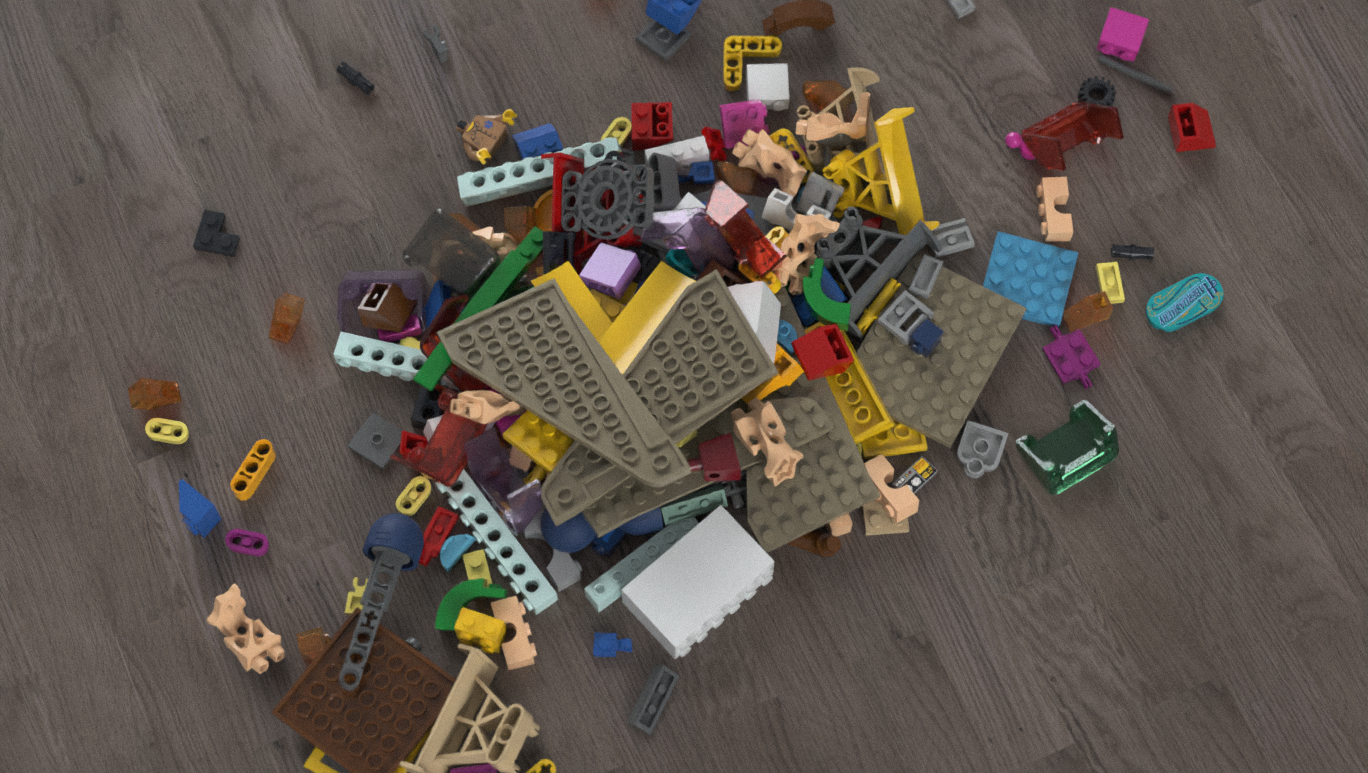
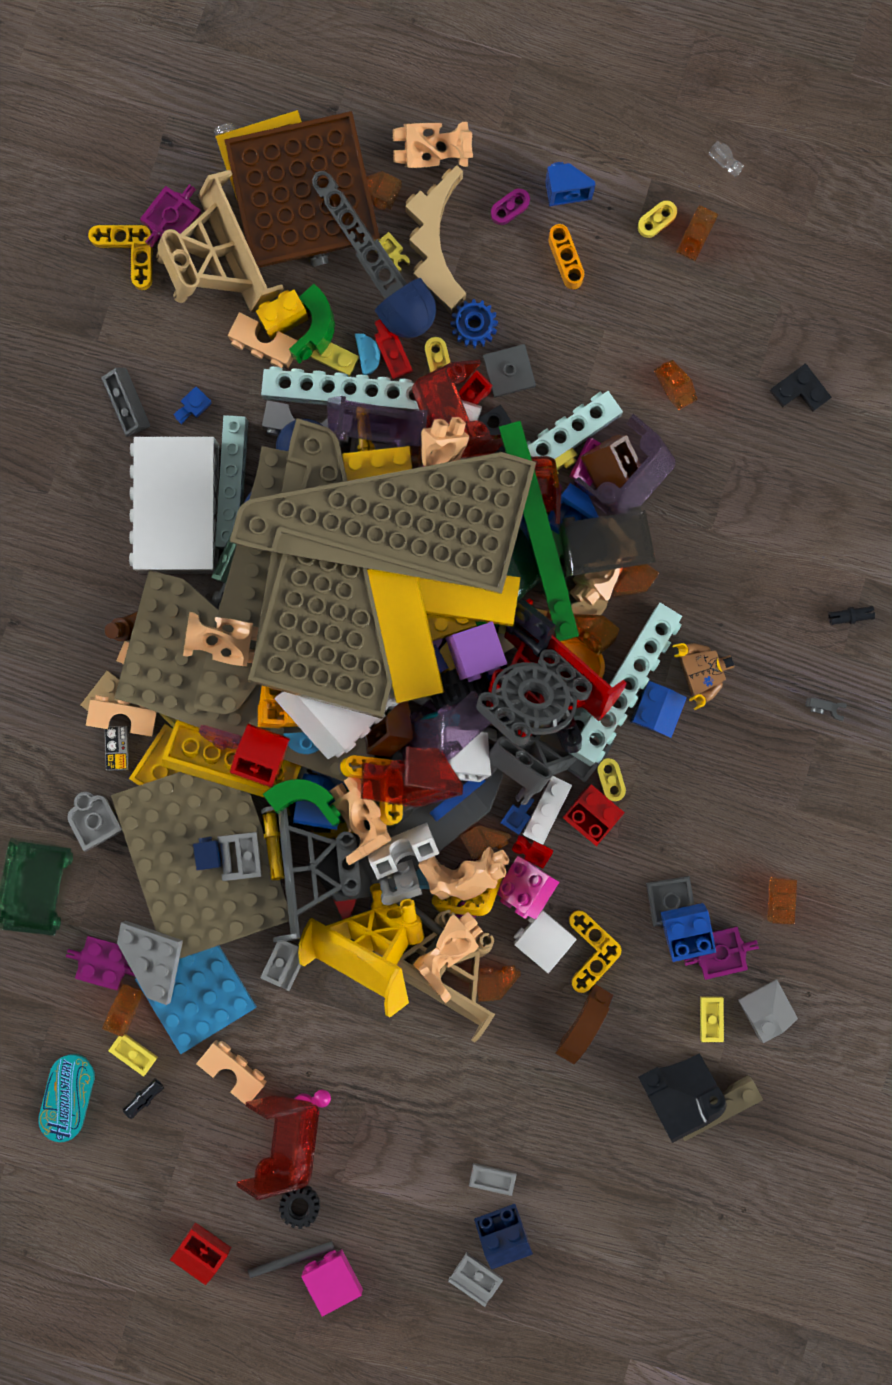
camera: 135 degrees right, 20 degrees up
(76, 424) = (723, 155): none -> clear plate
(325, 579) = (427, 213): none -> tan arch
(358, 482) = (477, 312): none -> blue gear
(717, 459) = (237, 585): dark red torso -> none
(836, 393) = (220, 738): none -> clear pink plate
(925, 276) = (261, 906): light grey tile -> none
(1034, 320) = (151, 958): none -> light grey plate

